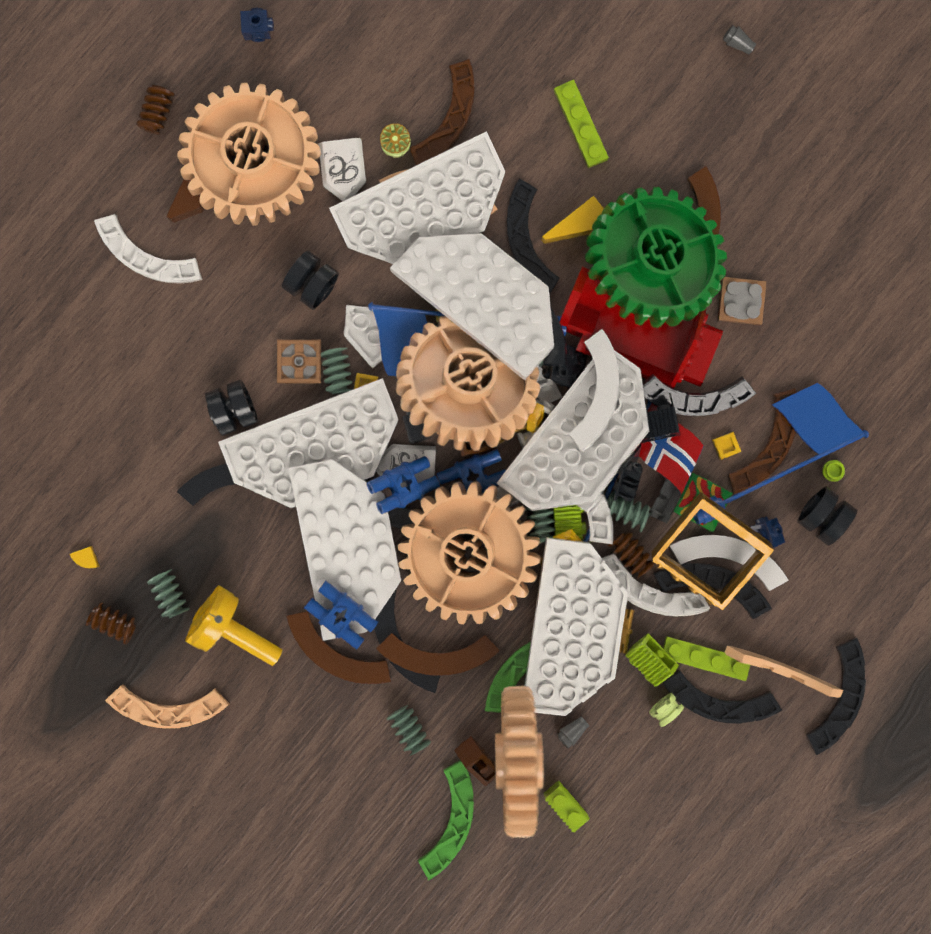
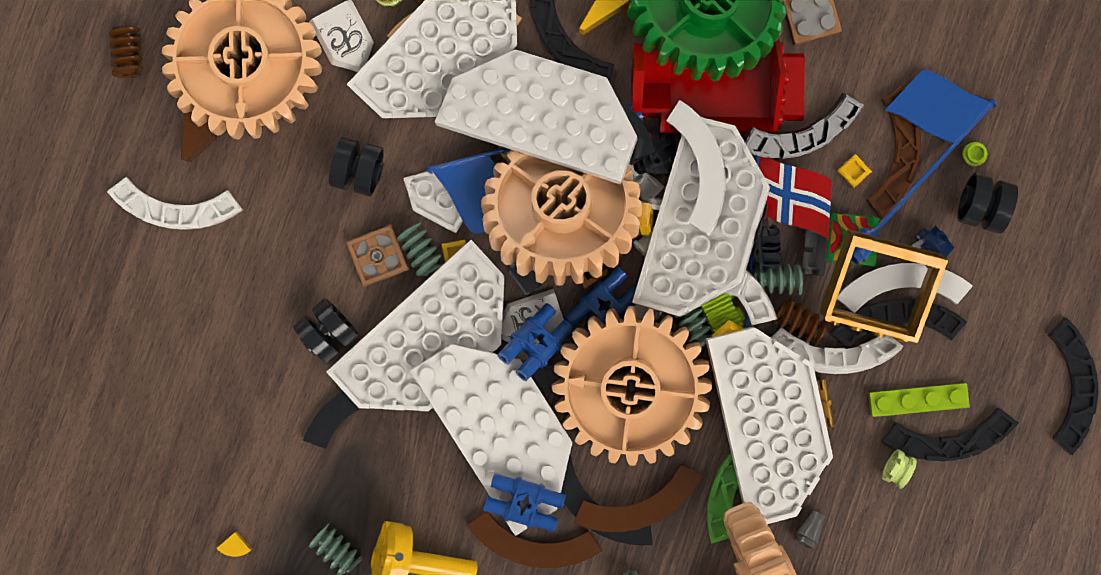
camera: 10 degrees left, 0 degrees up
(652, 660) = (864, 423): lime brick -> none
(662, 424) = (780, 174): black brick -> none
(780, 668) = (967, 381): light nougat tile -> none

